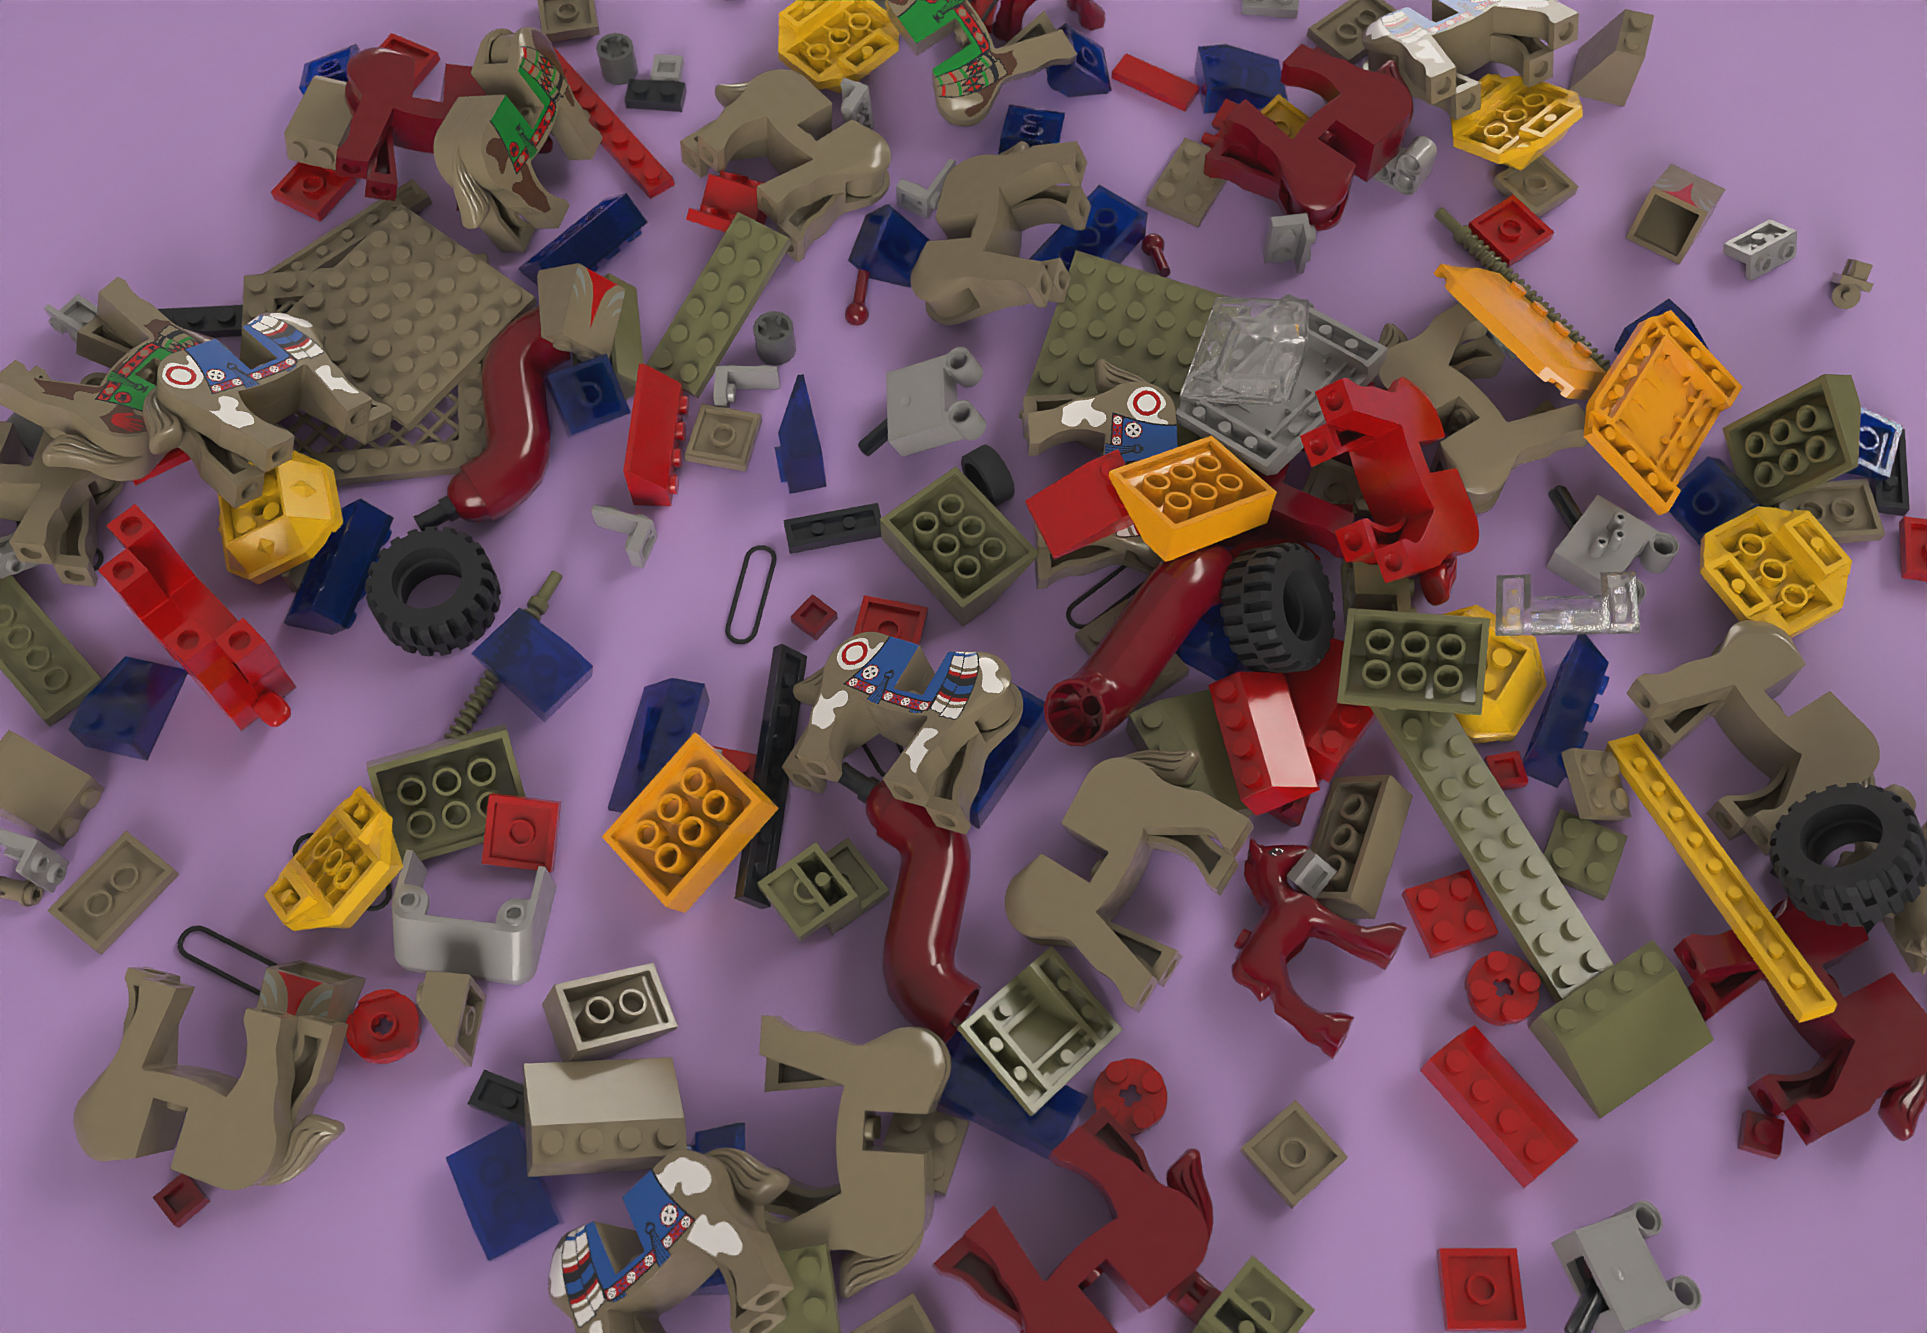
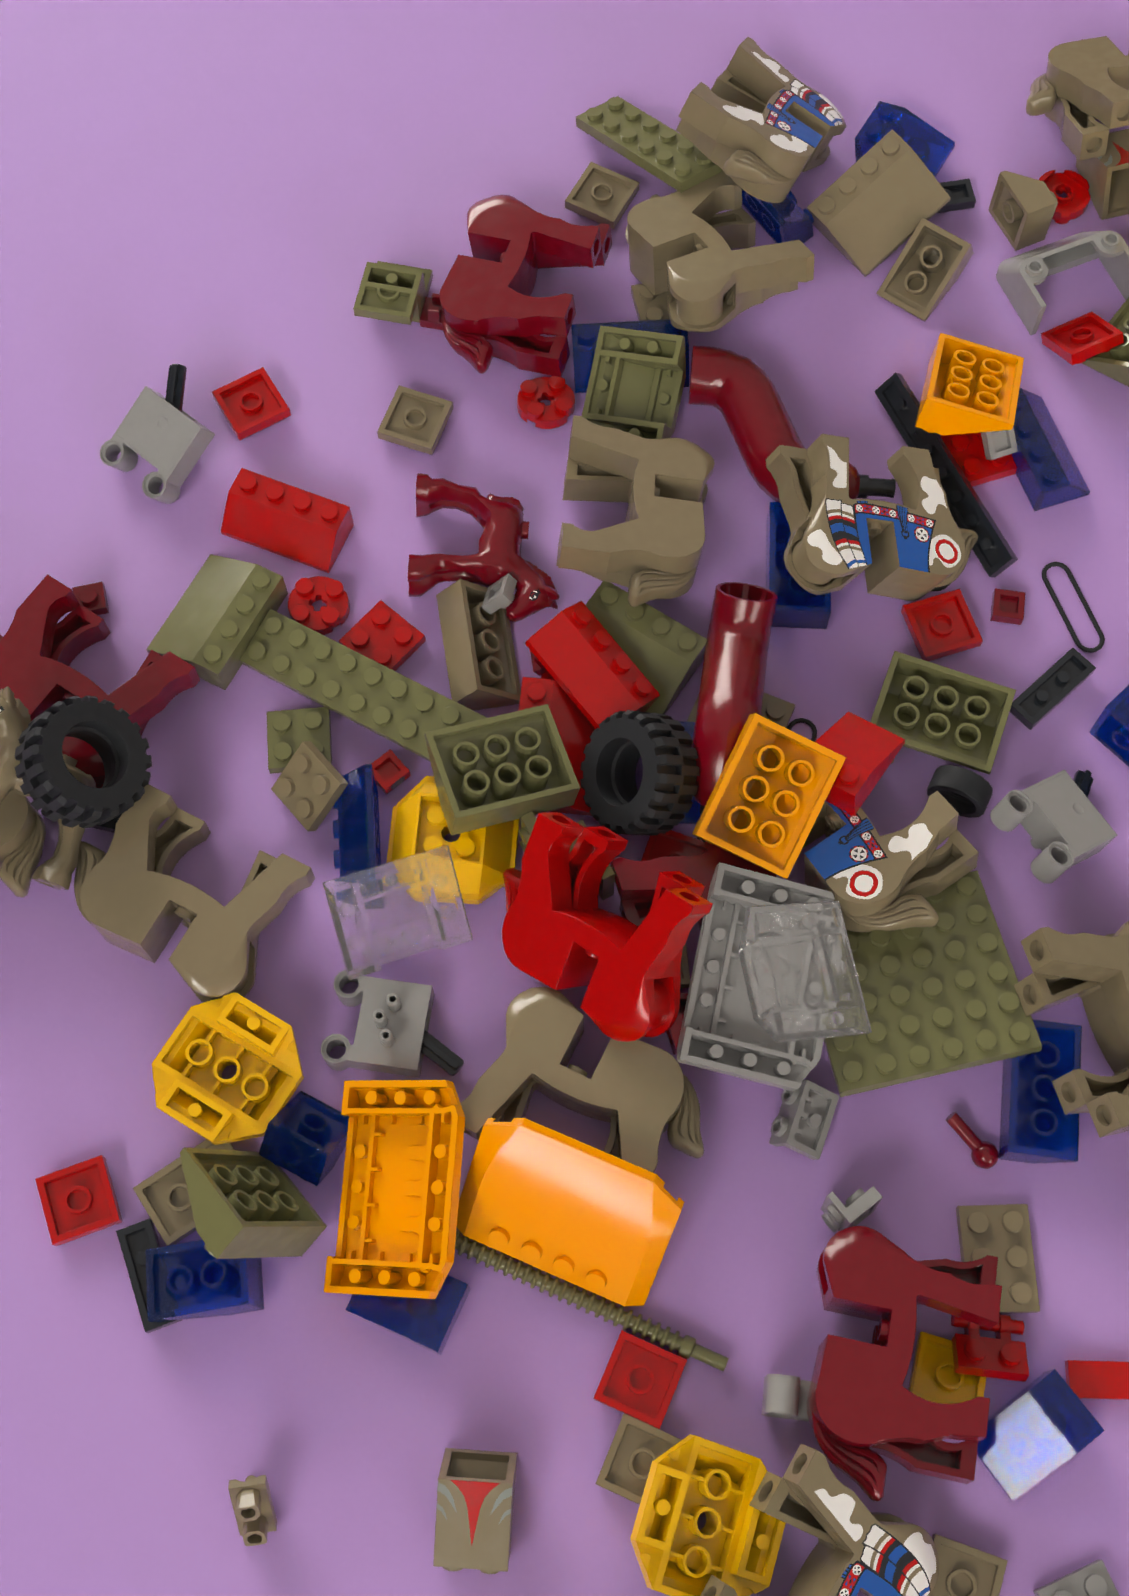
camera: 150 degrees right, 5 degrees up
(823, 889) = (844, 399): olive bracket -> none
(1722, 881) = (188, 736): yellow plate -> none
(1763, 247) = (365, 1515): light grey bracket -> none

